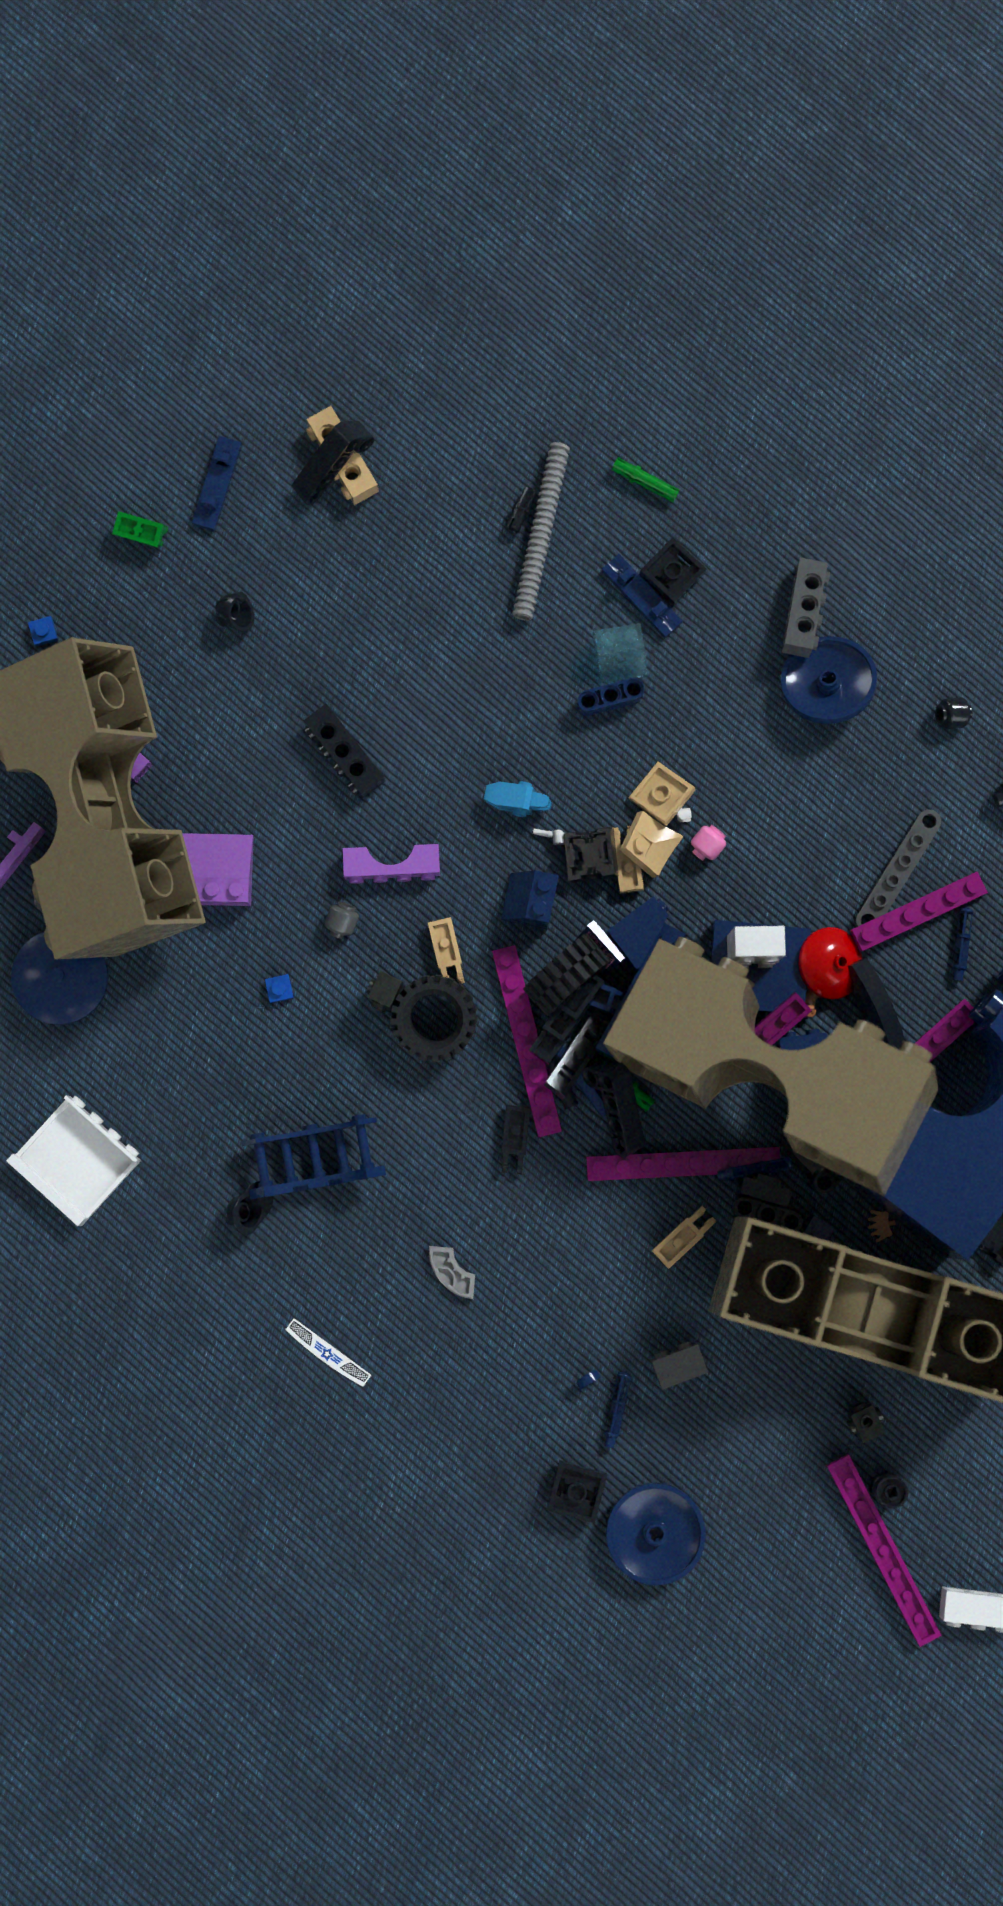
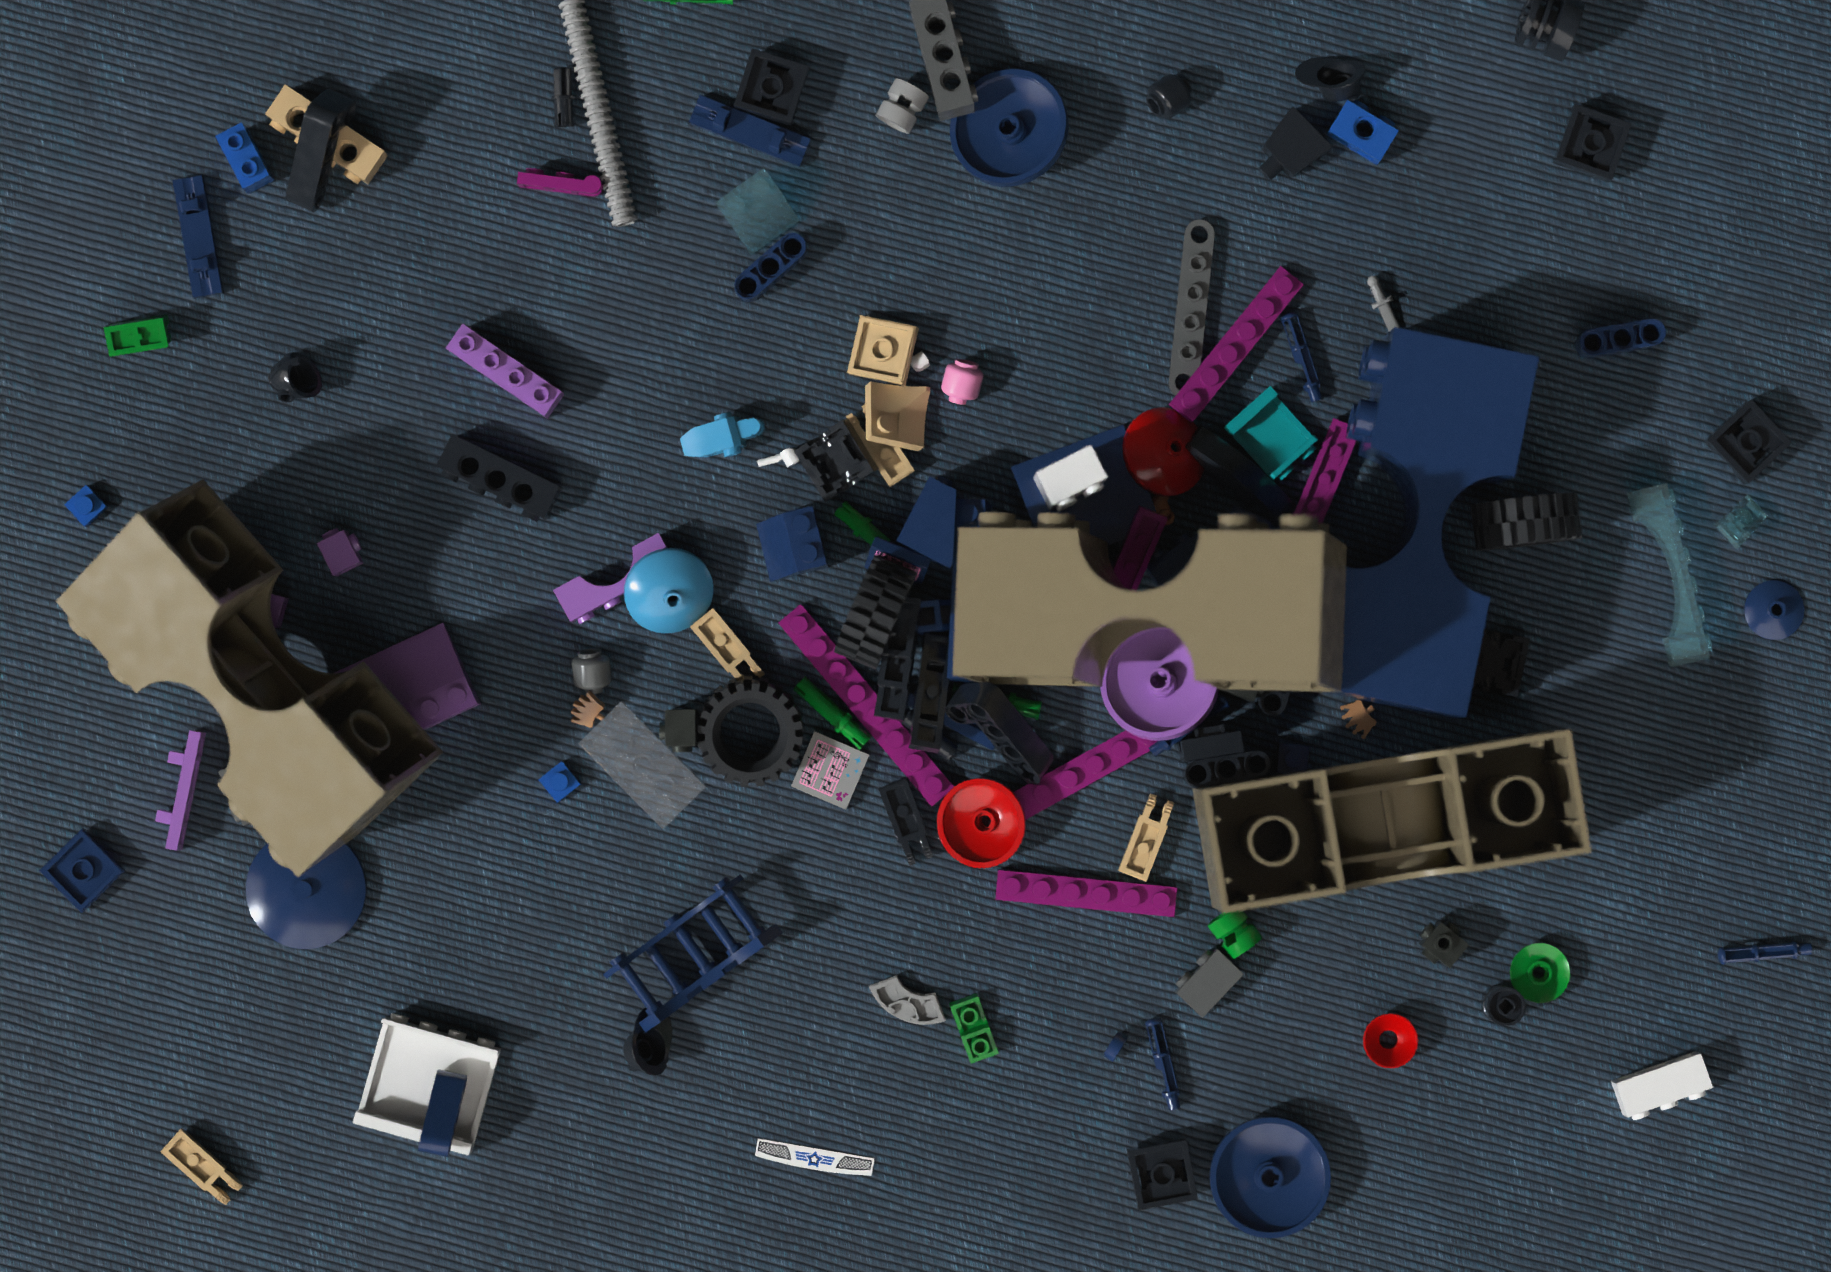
camera: 25 degrees left, 5 degrees up
(74, 1185) = (442, 1113): none -> dark blue beam
(205, 748) = (340, 551): none -> medium lavender brick
(277, 444) = (244, 158): none -> blue brick
(324, 947) = (587, 710): none -> medium nougat piece
(344, 1004) = (642, 765): none -> clear brick
(385, 678) = (505, 371): none -> medium lavender brick
(428, 875) = (663, 575): none -> dark azure dish
(477, 1075) = (830, 770): none -> light grey tile
(490, 567) = (560, 183): none -> magenta plate
(490, 1314) = (973, 1028): none -> green slope
(502, 1041) = (830, 711): none -> green pin
(553, 1163) = (962, 826): none -> red dish
(584, 907) = (859, 524): none -> green pin
(620, 1256) = (1086, 893): none -> magenta plate
(716, 1337) = (1234, 932): none -> green wheel
(746, 1128) = (1153, 687): none -> medium lavender dish
(753, 634) = (898, 115): none -> light grey wheel
(802, 1484) = (1404, 1048): none -> red piece
(883, 1550) = (1527, 1072): magenta plate -> none
(913, 988) = (1271, 435): none -> teal panel
(936, 1488) = (1555, 972): none -> green dish

